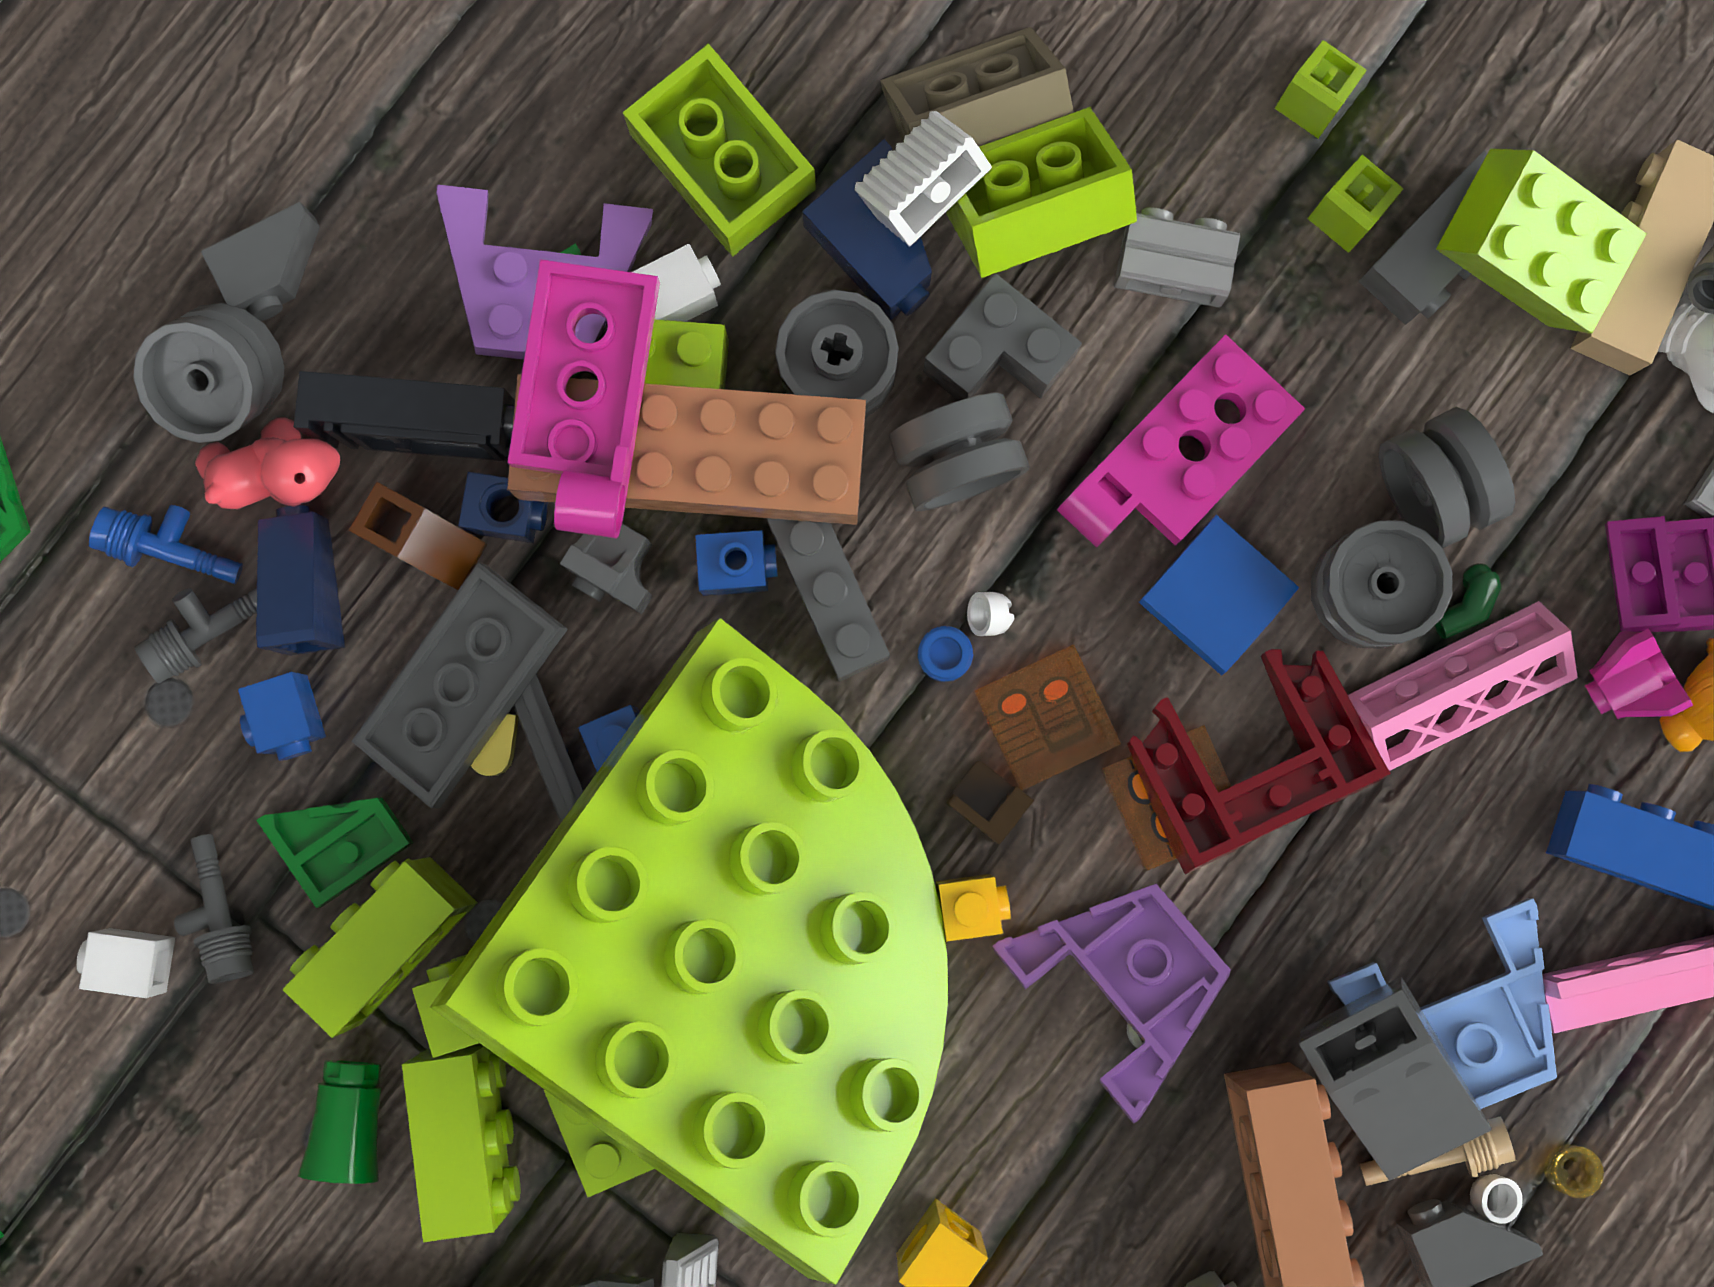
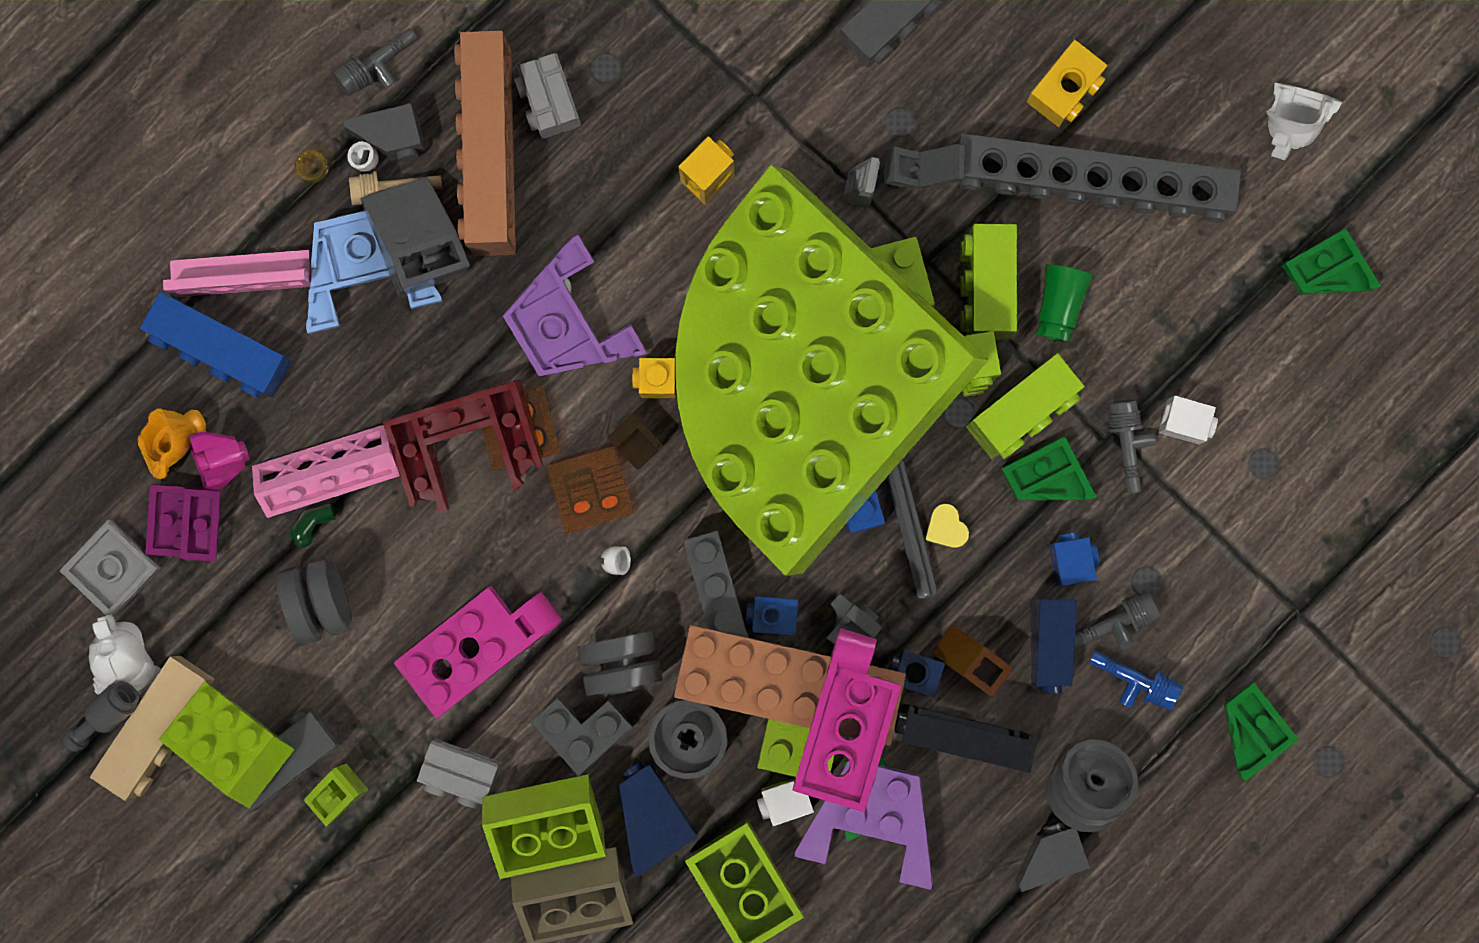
camera: 165 degrees left, 0 degrees up
(273, 466) = (1048, 712): coral animal -> none
(459, 685) = (958, 563): dark grey tile -> none
(923, 177) = (616, 842): white brick -> none
(945, 654) = (648, 539): blue tile -> none
(1219, 595) = (469, 550): blue slope -> none
(1320, 89) = (344, 874): lime slope -> none
(1414, 580) = (388, 540): dark grey wheel -> none

